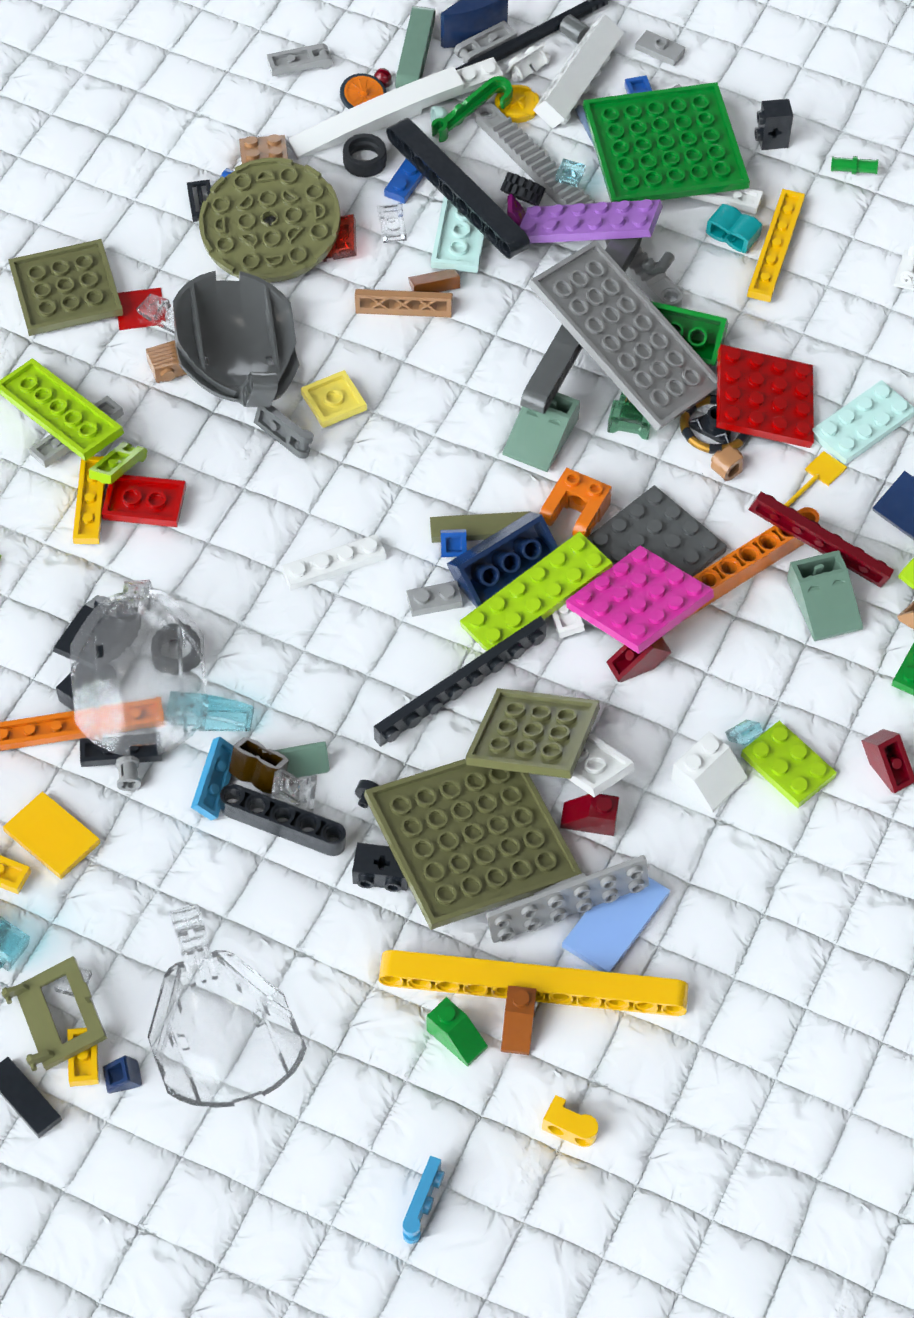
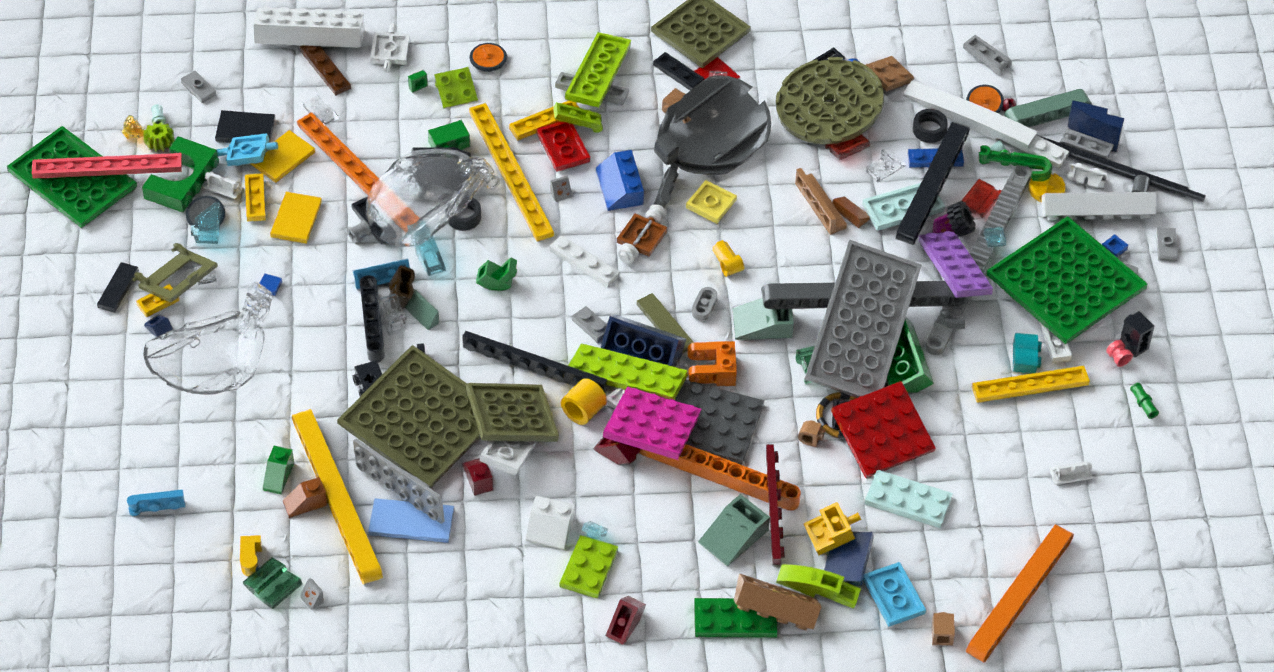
camera: 60 degrees right, 5 degrees down
(48, 610) = (450, 135): none -> green brick
(111, 339) = (677, 71): none -> black tile
(142, 913) = (271, 282): none -> blue tile
(160, 571) = (511, 172): none -> yellow plate
(210, 534) = (560, 188): none -> light grey slope
(242, 468) = (620, 181): none -> blue slope
(306, 656) = (495, 276): none -> green brick
(336, 486) = (642, 234): none -> dark orange plate
(437, 423) = (728, 260): none -> yellow piece
(453, 542) = (638, 312): blue plate -> none
(481, 476) = (704, 305): none -> light grey plate
(495, 162) = (981, 197): none -> clear red plate
(556, 655) = (583, 401): none -> yellow piece
(625, 1117) = (272, 583): none -> clear green slope
(671, 1078) = (312, 594): none -> light grey slope
(782, 153) = (1119, 353): none -> coral wheel
(822, 468) = (850, 493): yellow piece -> none
(875, 506) = (830, 528): none -> yellow plate

